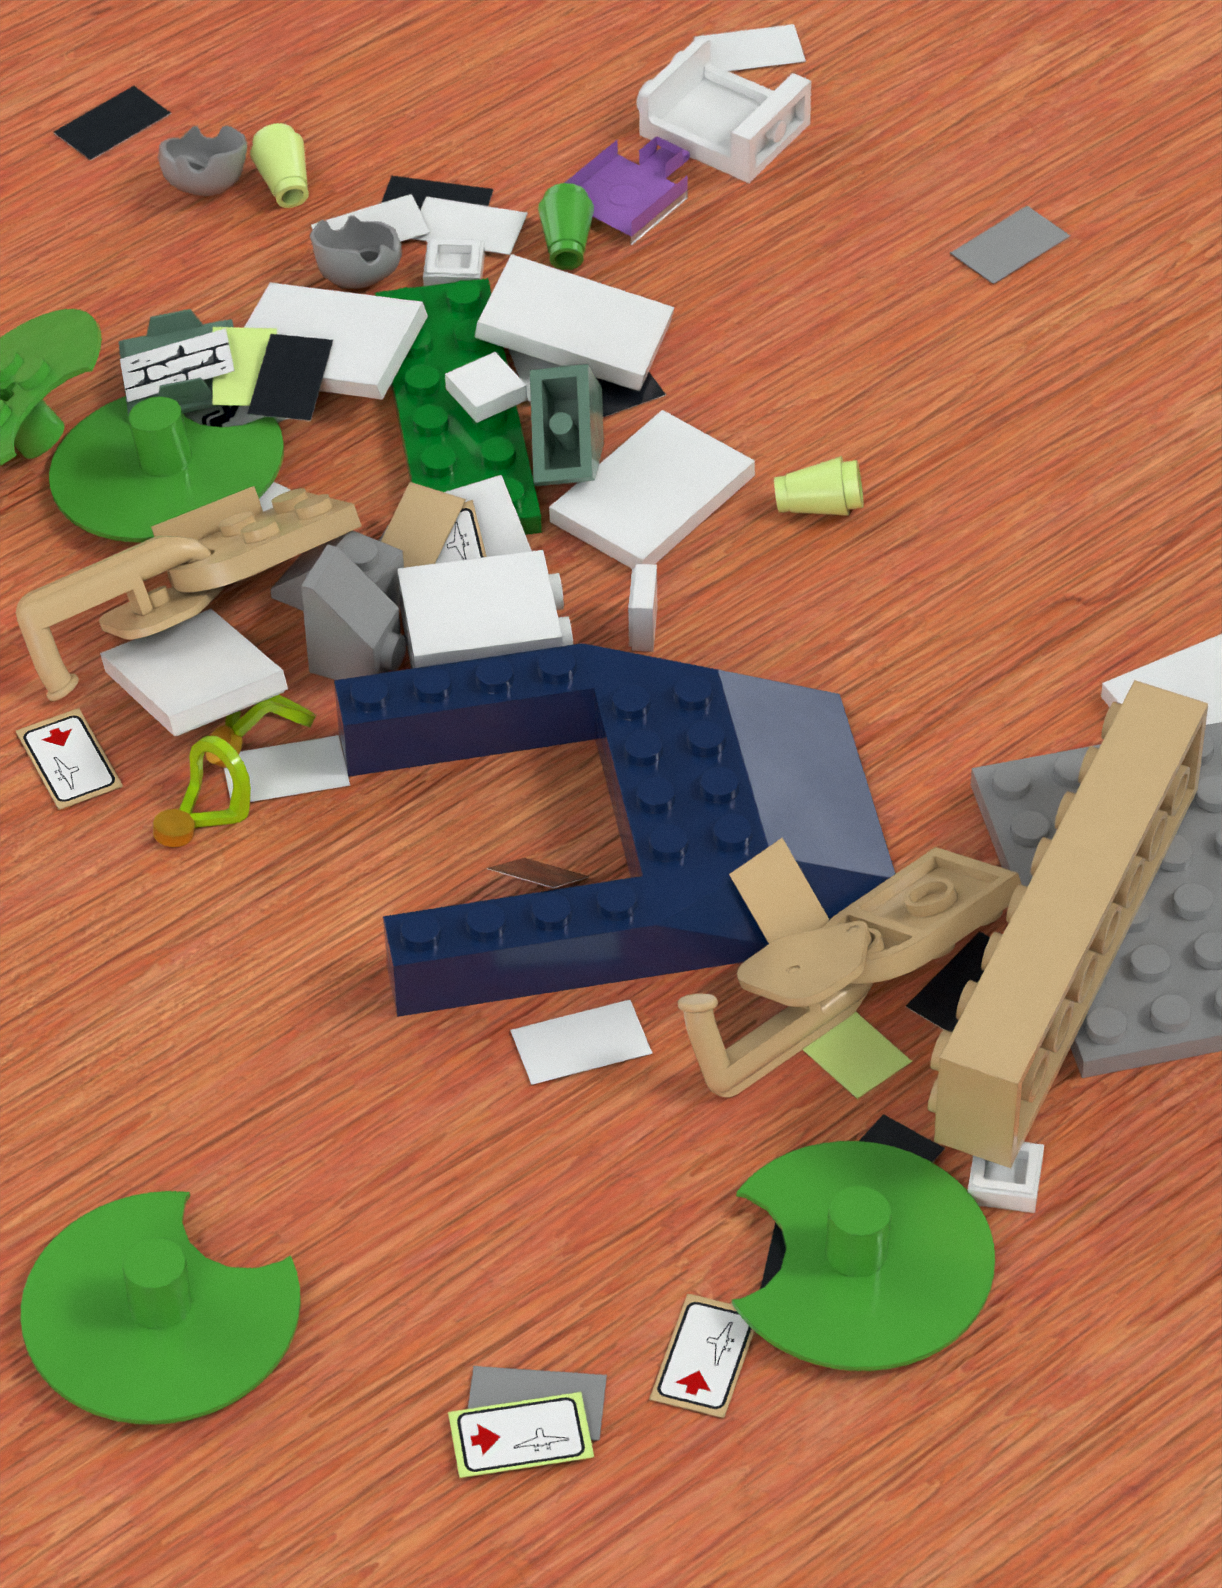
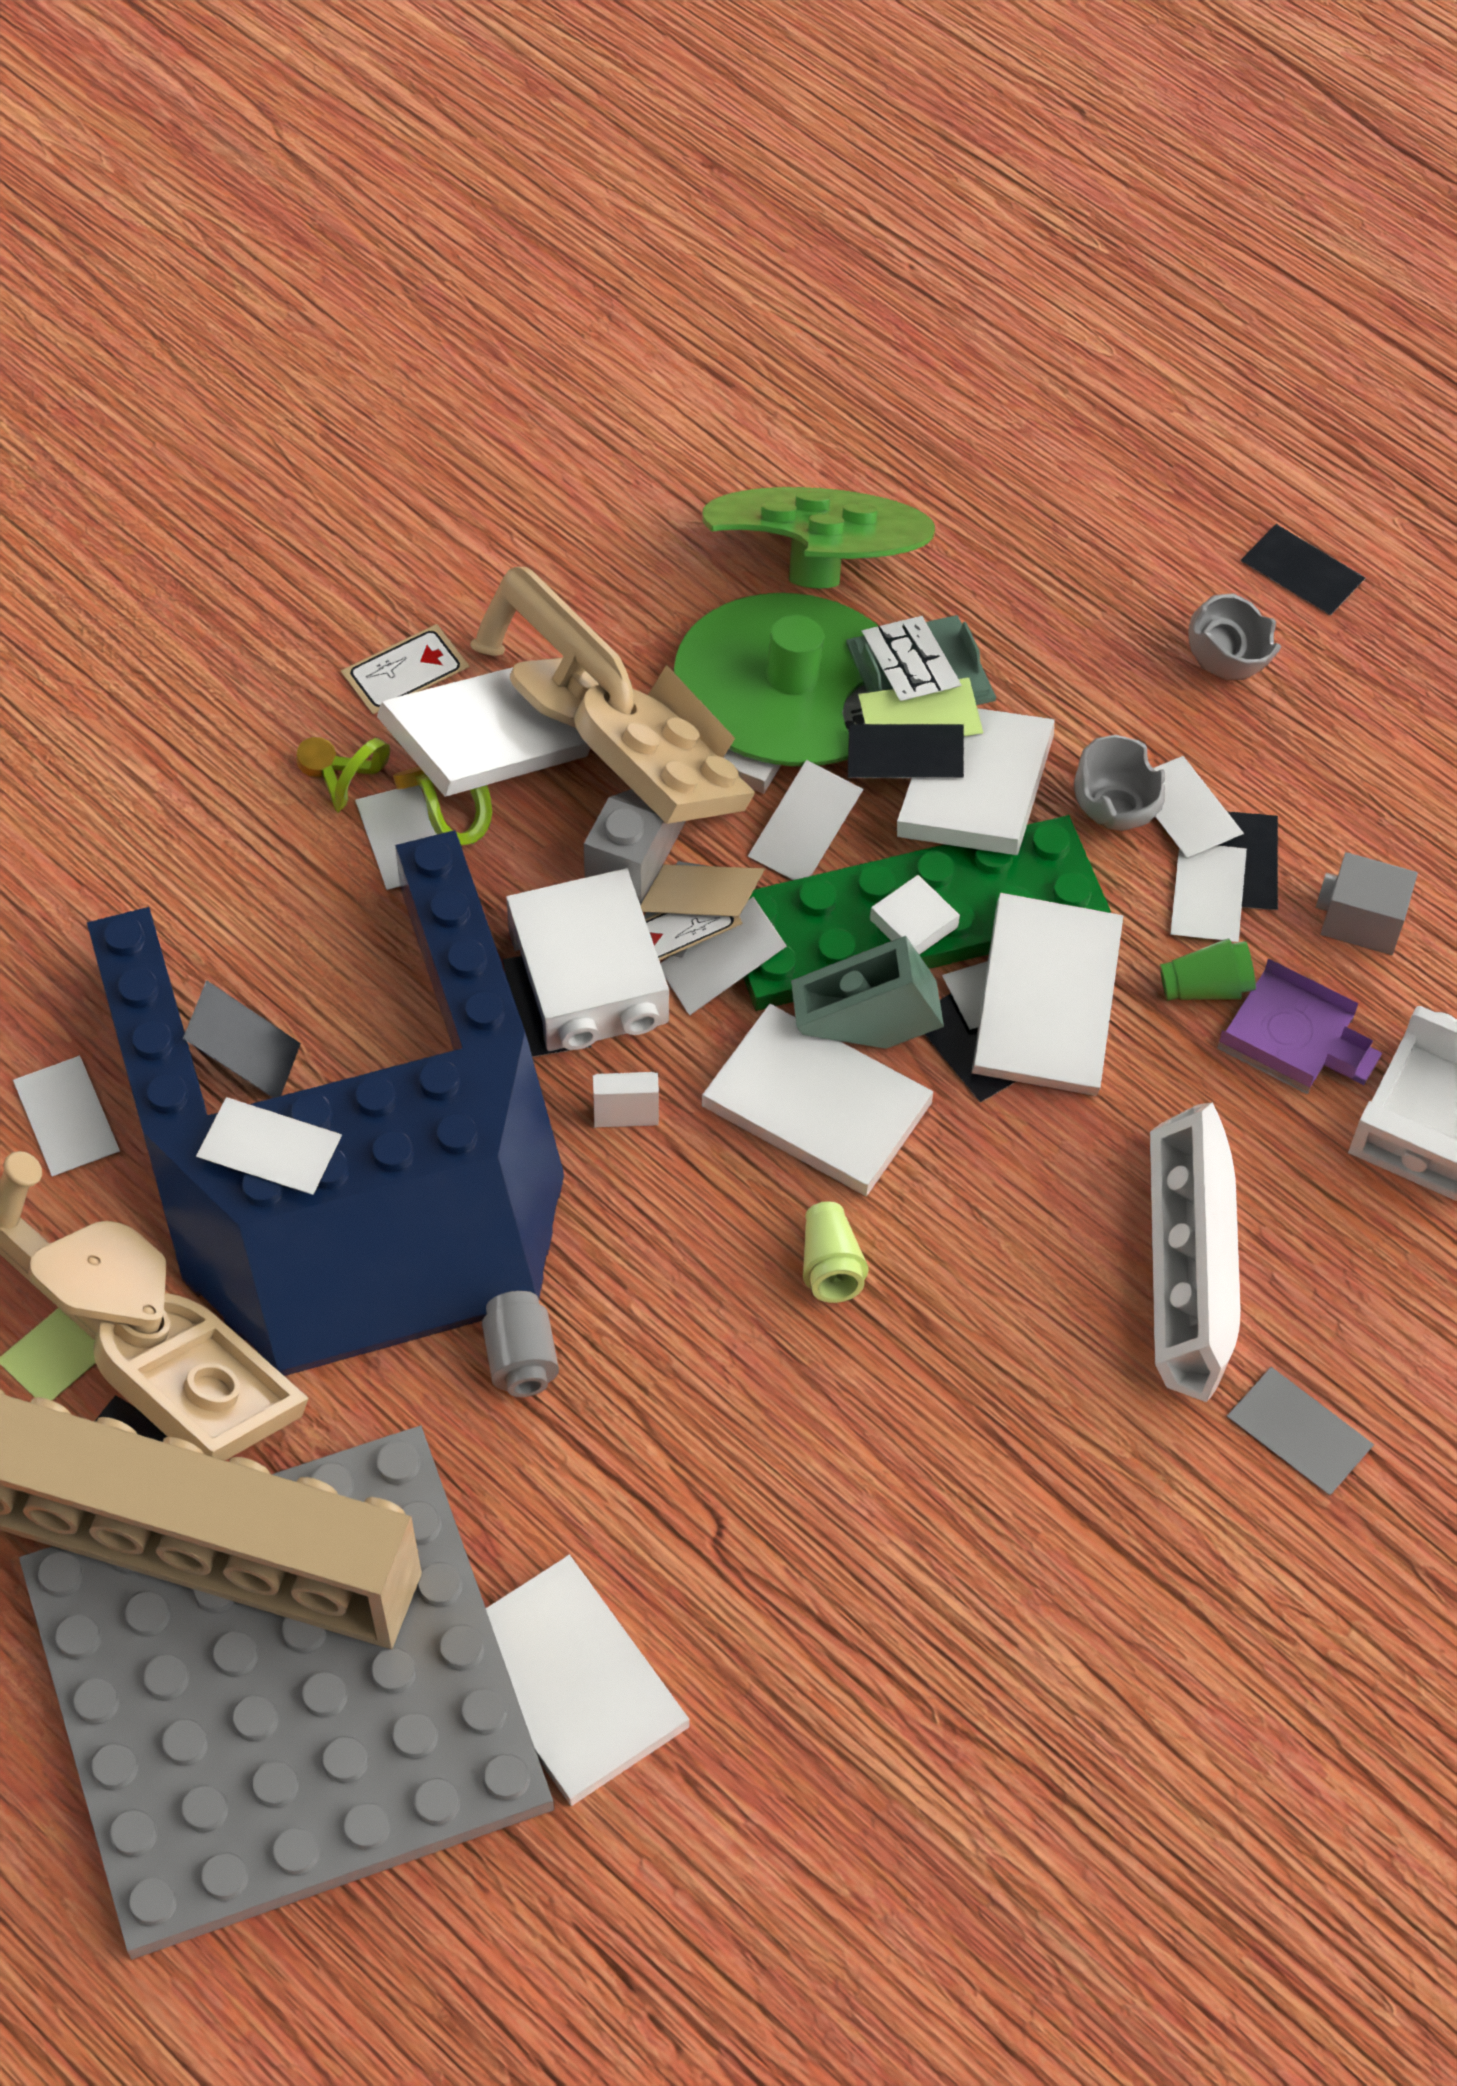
camera: 80 degrees right, 10 degrees up
(281, 162) = (1250, 710): yellowish green cone -> none
(344, 466) = (805, 822): none -> white sticker
(349, 620) = (552, 830): light grey slope -> none
(453, 261) = (1138, 884): white tile -> none
(513, 120) = (1366, 902): none -> light grey brick
(693, 820) = (269, 1145): none -> white sticker
(778, 893) = (206, 1250): tan sticker -> none
(848, 261) = (1194, 1251): none -> white brick
(895, 696) = (519, 1344): none -> light grey brick

